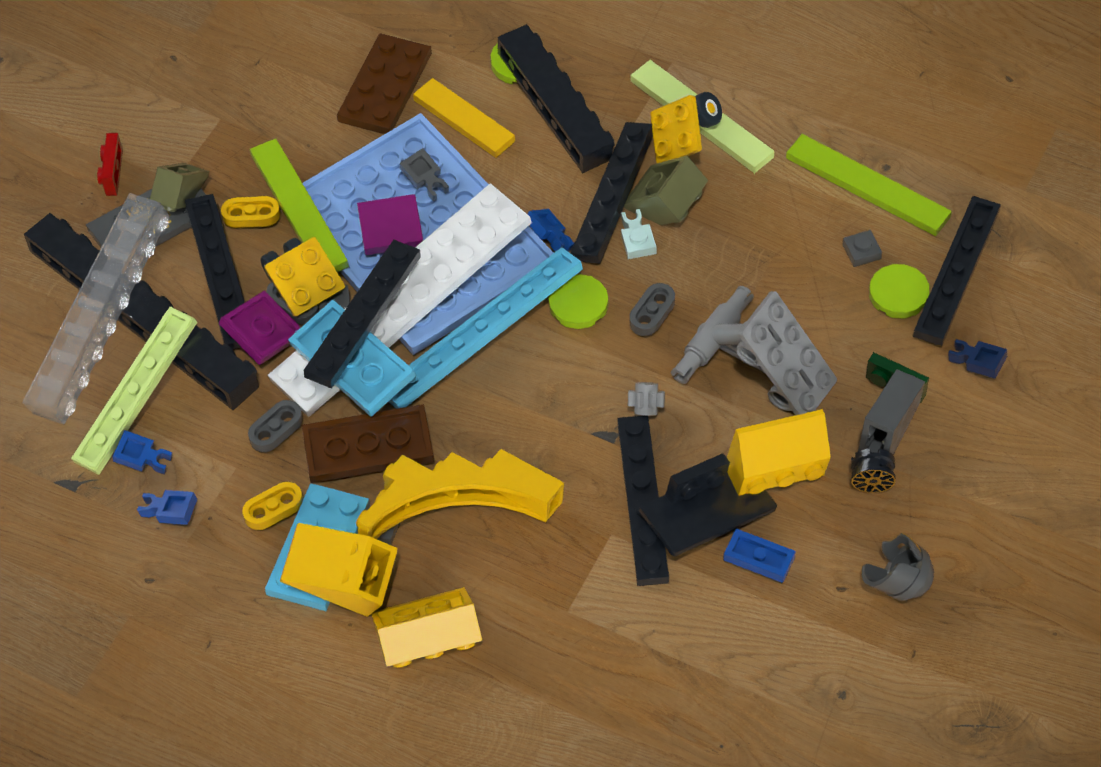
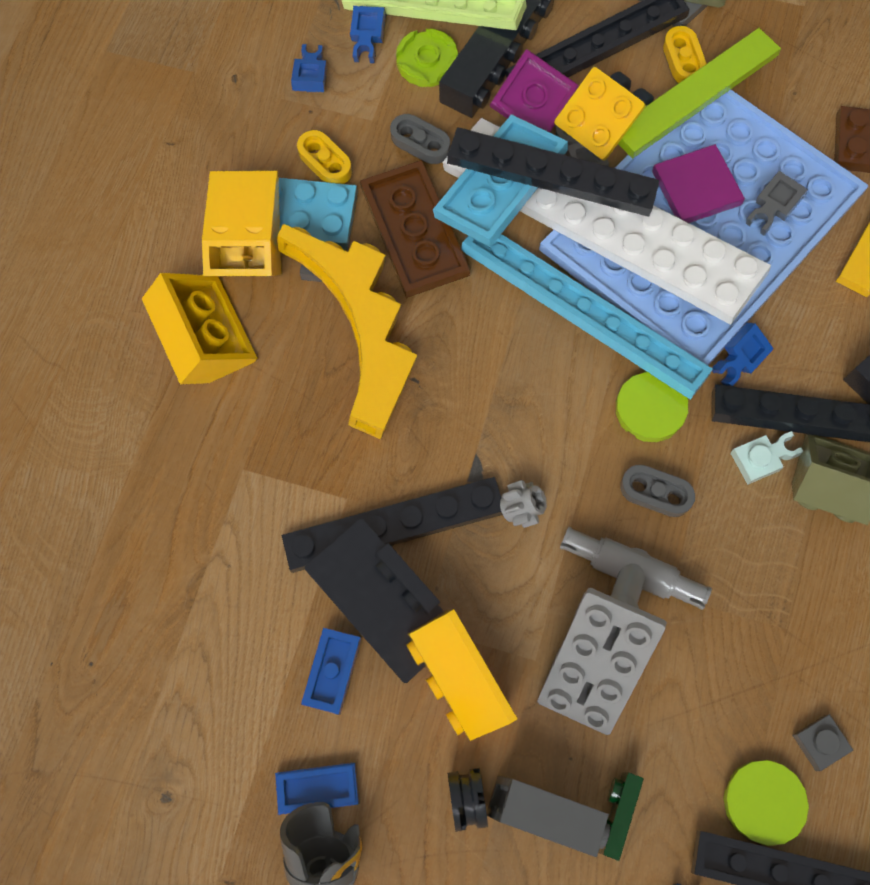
camera: 80 degrees right, 15 degrees up
(182, 411) = (425, 57): none -> lime tile
(848, 585) = (328, 784): none -> blue tile

